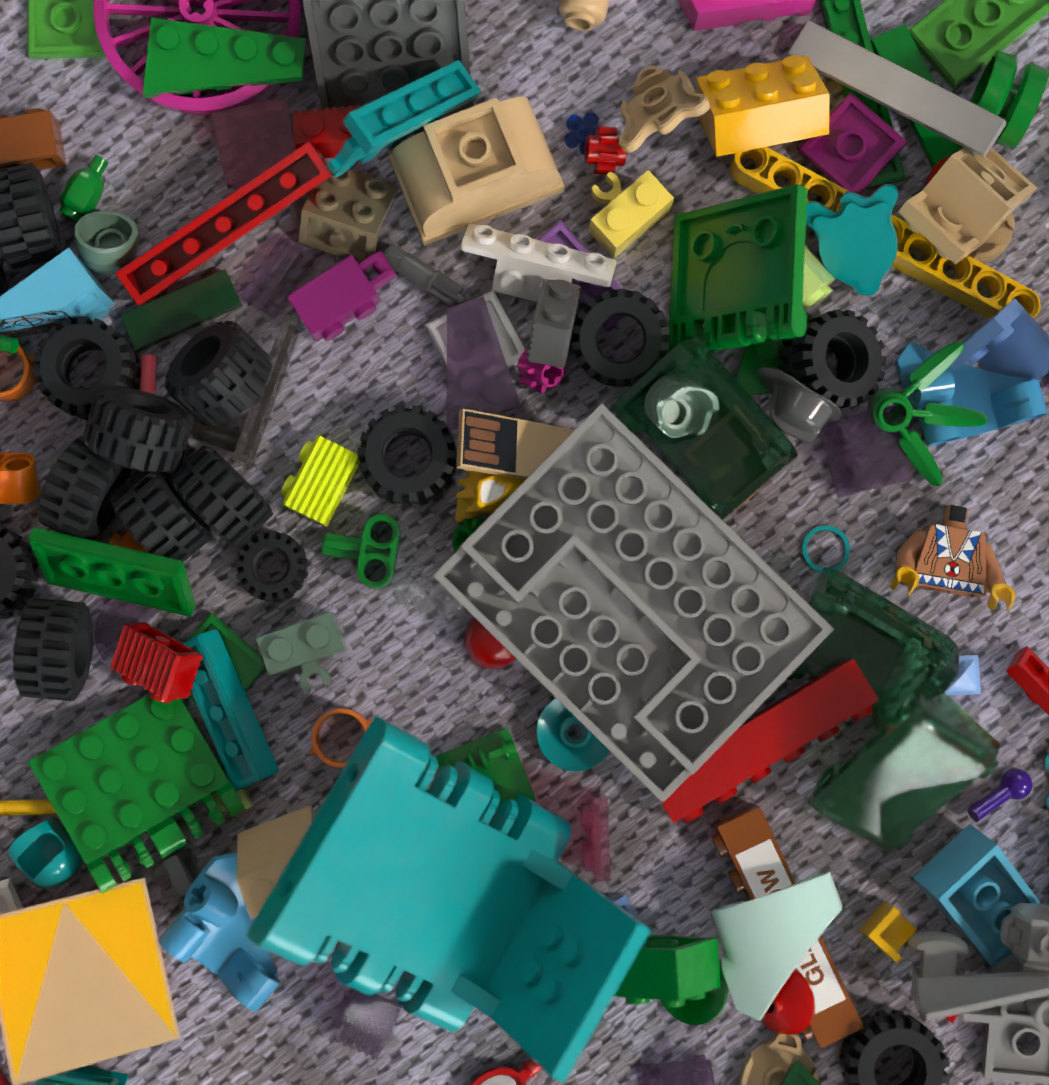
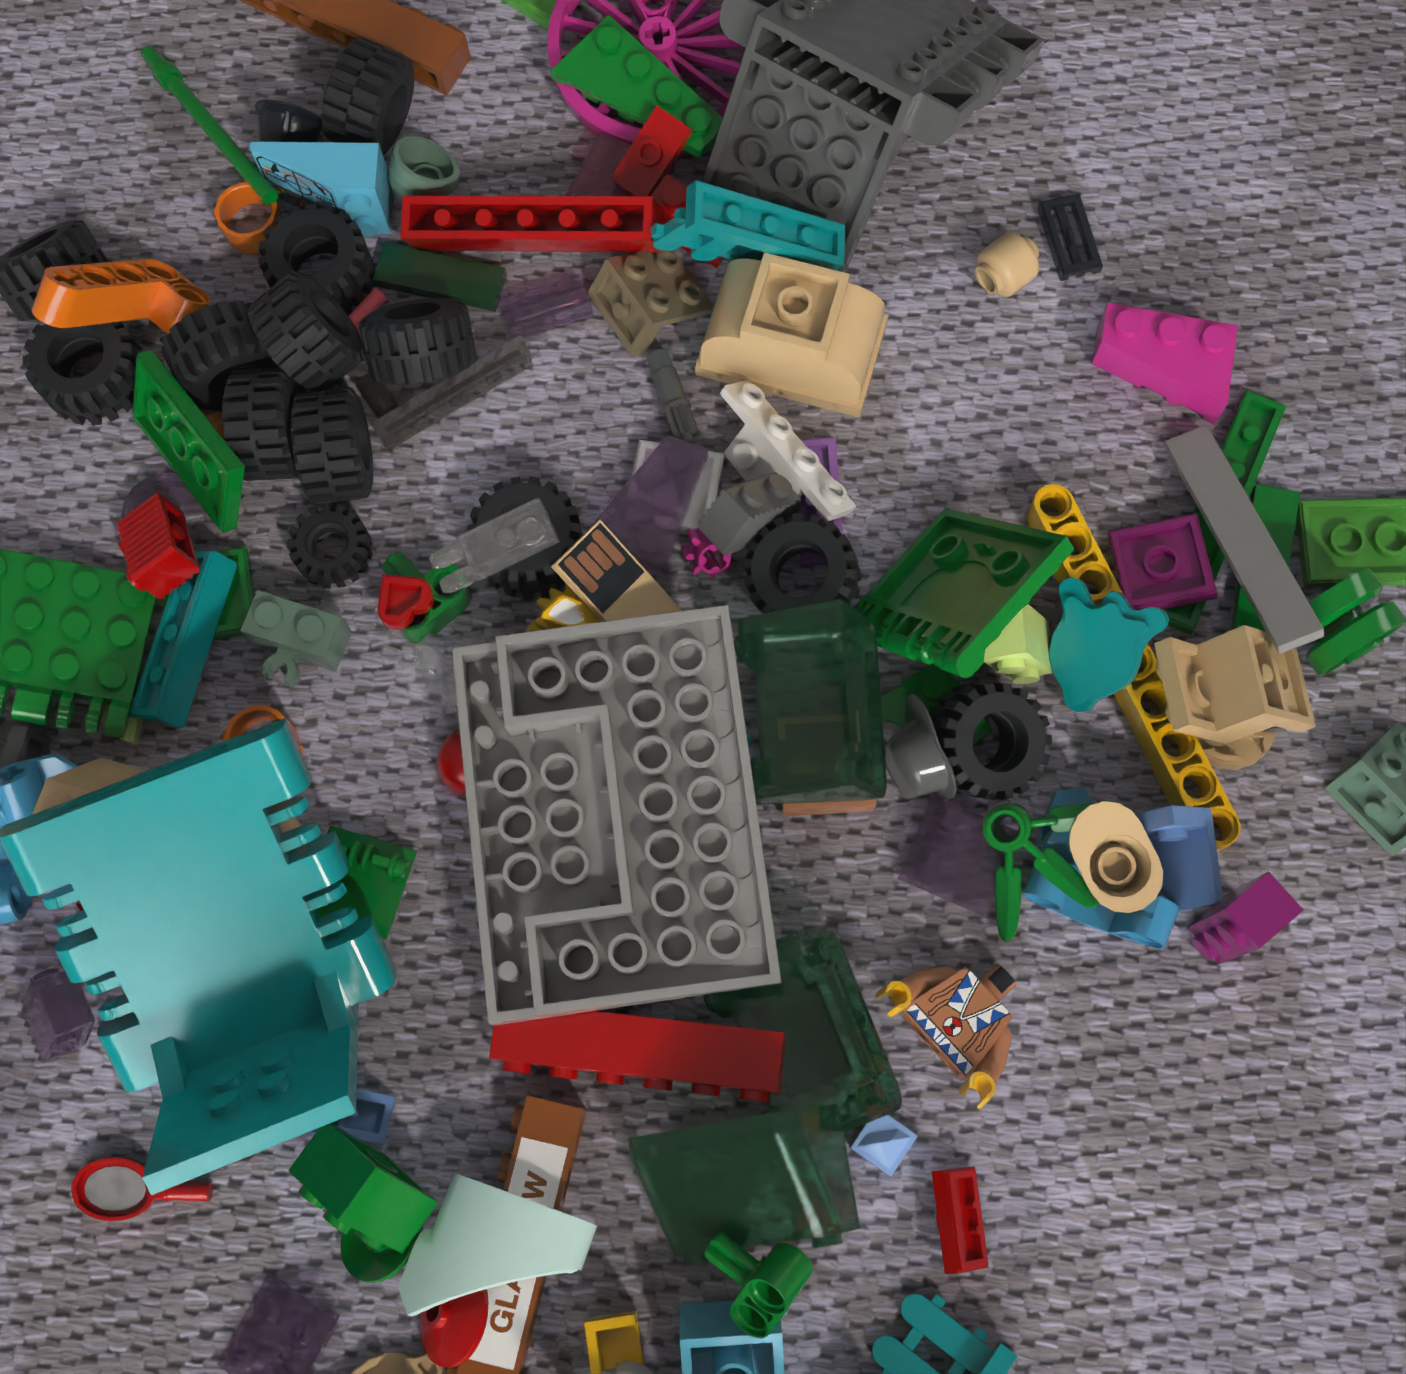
camera: 45 degrees right, 10 degrees down
(53, 649) = (80, 467): black tyre -> none
(83, 190) = (442, 120): green plant -> none
(269, 104) = (651, 153): none -> red plate
(320, 480) = (432, 503): neon yellow brick -> none
(341, 295) = (584, 359): magenta brick -> none
(363, 566) = (403, 599): none -> red tile
(403, 479) = (496, 545): none -> clear hinge
(561, 749) = (447, 904): teal dish -> none
(580, 129) = (918, 380): clear blue plant -> none
(596, 853) = (418, 998): clear pink tile -> none
(604, 150) = (923, 404): red gear -> none
(628, 212) = (901, 472): light yellow brick -> none
(658, 105) = (1009, 395): tan tile -> none
(680, 405) = (802, 665): sand green hair -> none
(764, 105) = (1100, 463): yellow brick -> none
(825, 528) = (850, 893): teal piece -> none
(970, 824) = (766, 1284): none -> green beam
(978, 378) = (1115, 857): none -> tan piece
(1014, 785) = (857, 1298): dark purple bar -> none

